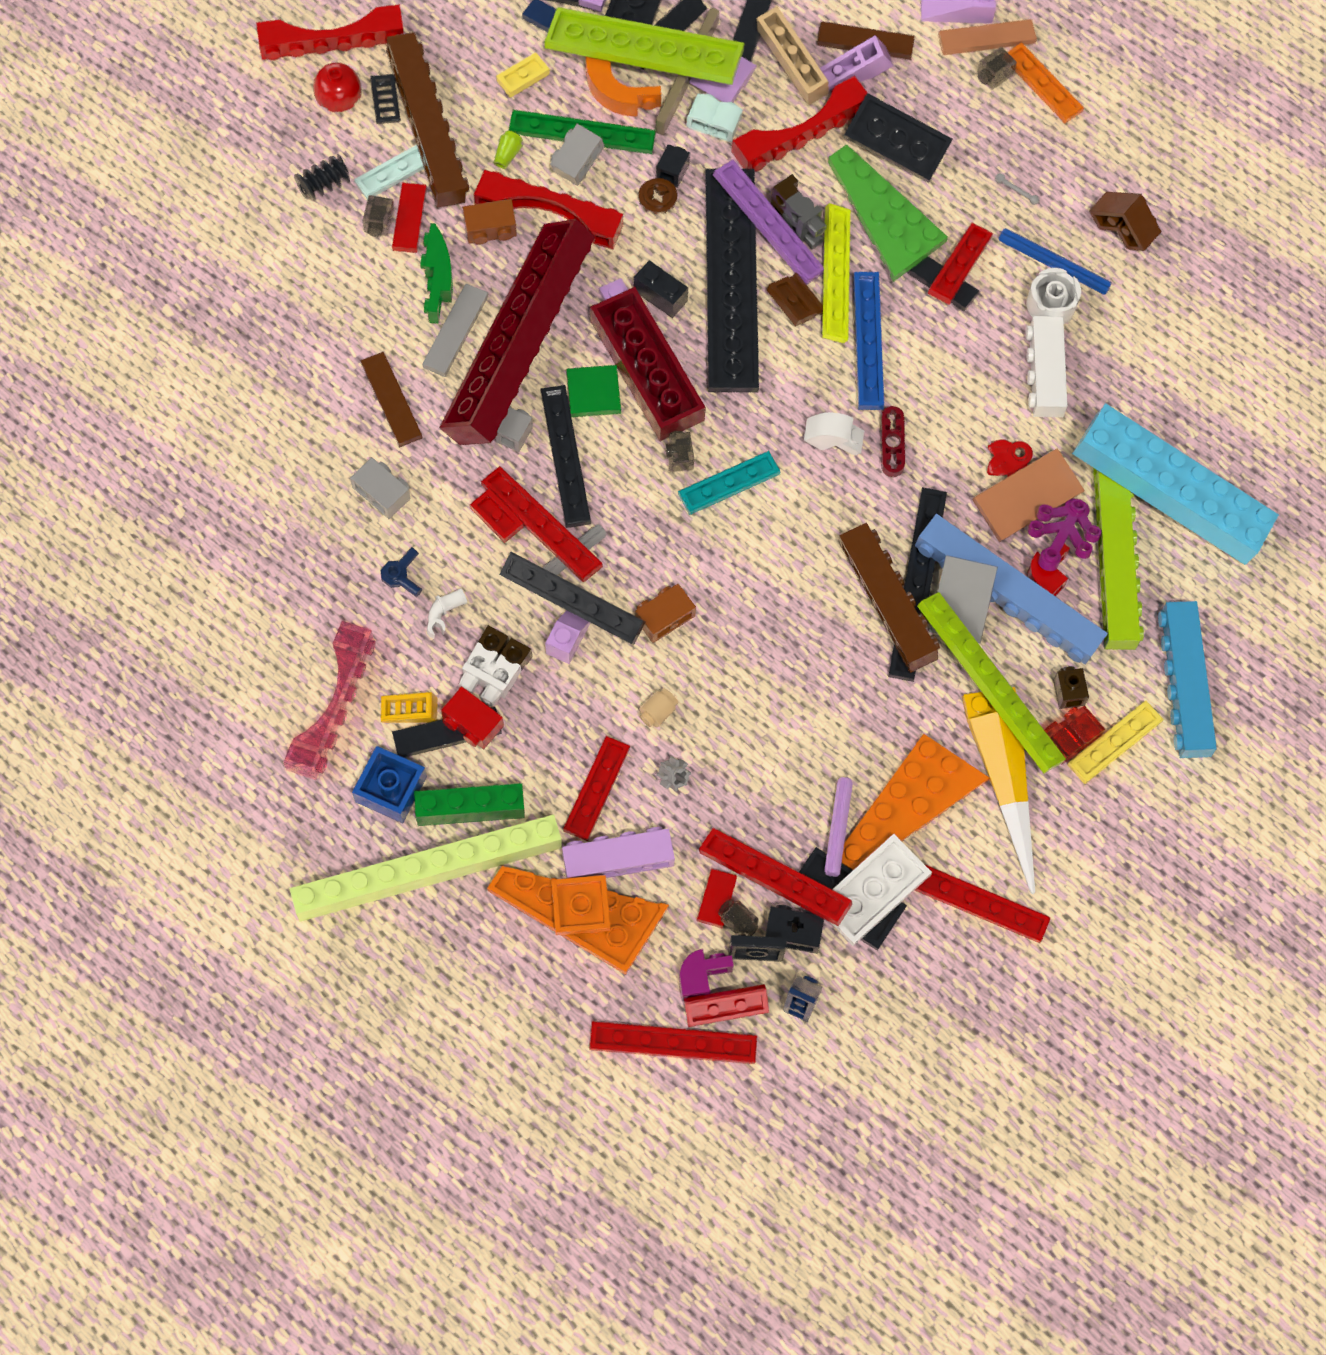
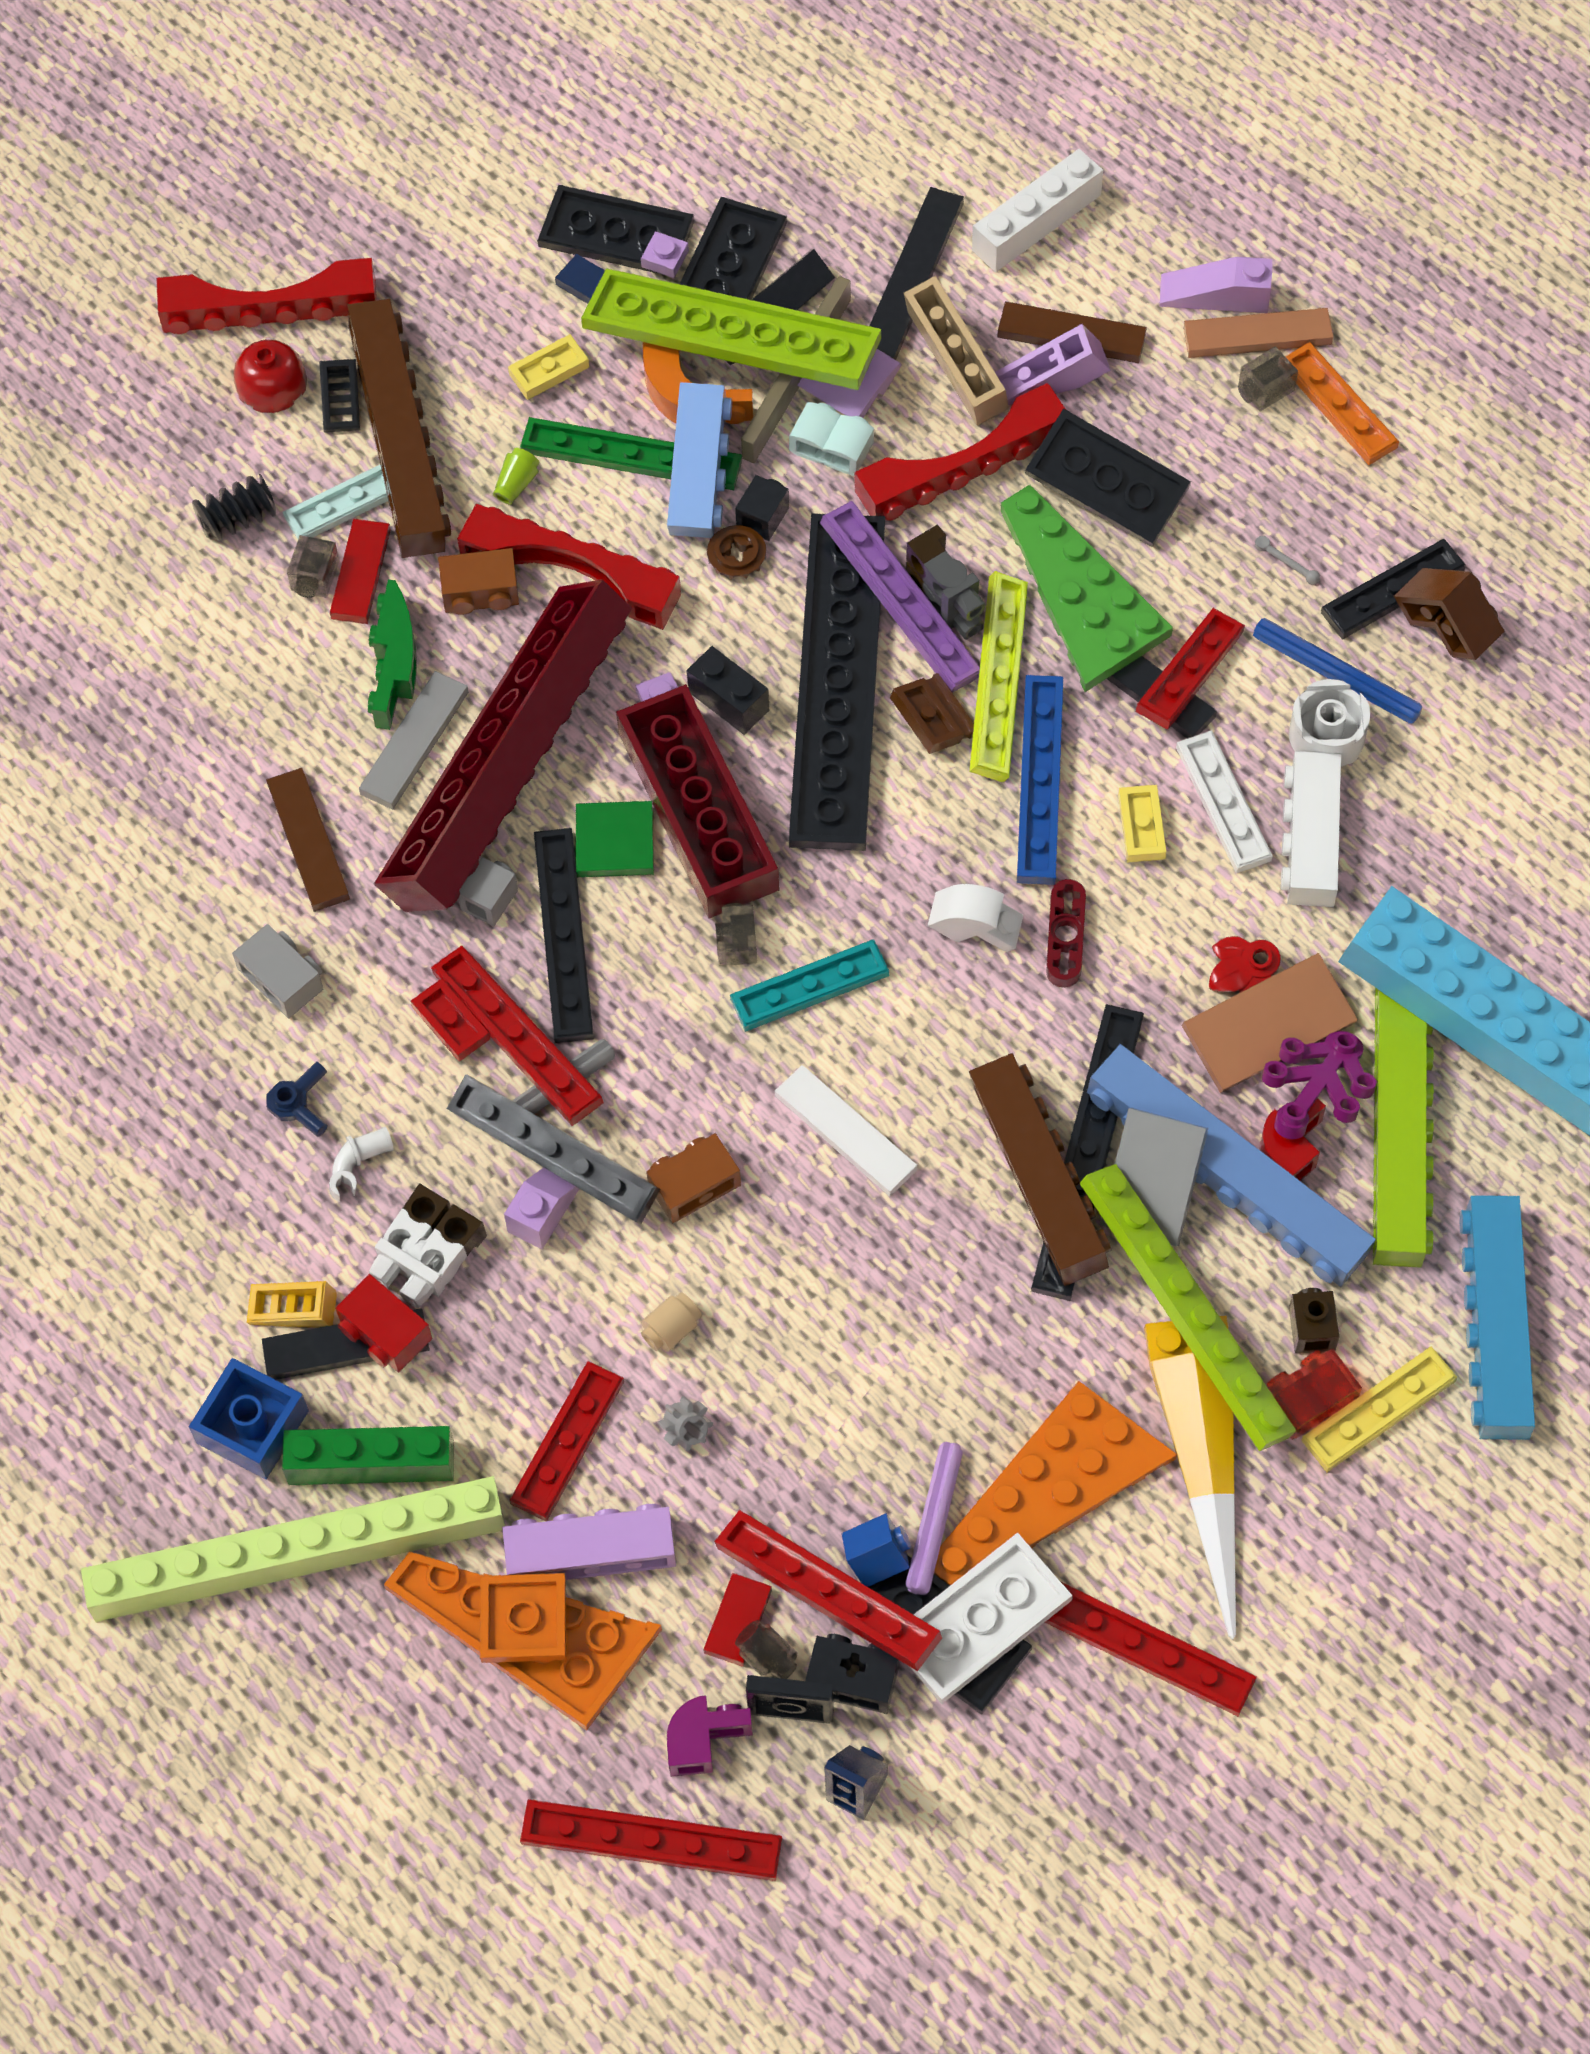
camera: 10 degrees right, 5 degrees down
(309, 749) = (134, 1359): clear pink arch -> none
(576, 154) = (618, 486): light grey brick -> none
(628, 135) = (697, 460): none -> light blue brick
(726, 1005) = (737, 1786): tile -> none
(760, 577) = (846, 1130): none -> white tile
(804, 849) = (876, 1549): none -> blue brick
(936, 367) = (1142, 823): none -> light yellow plate
(988, 350) = (1224, 802): none -> white tile
(1077, 210) = (1376, 597): none -> black tile

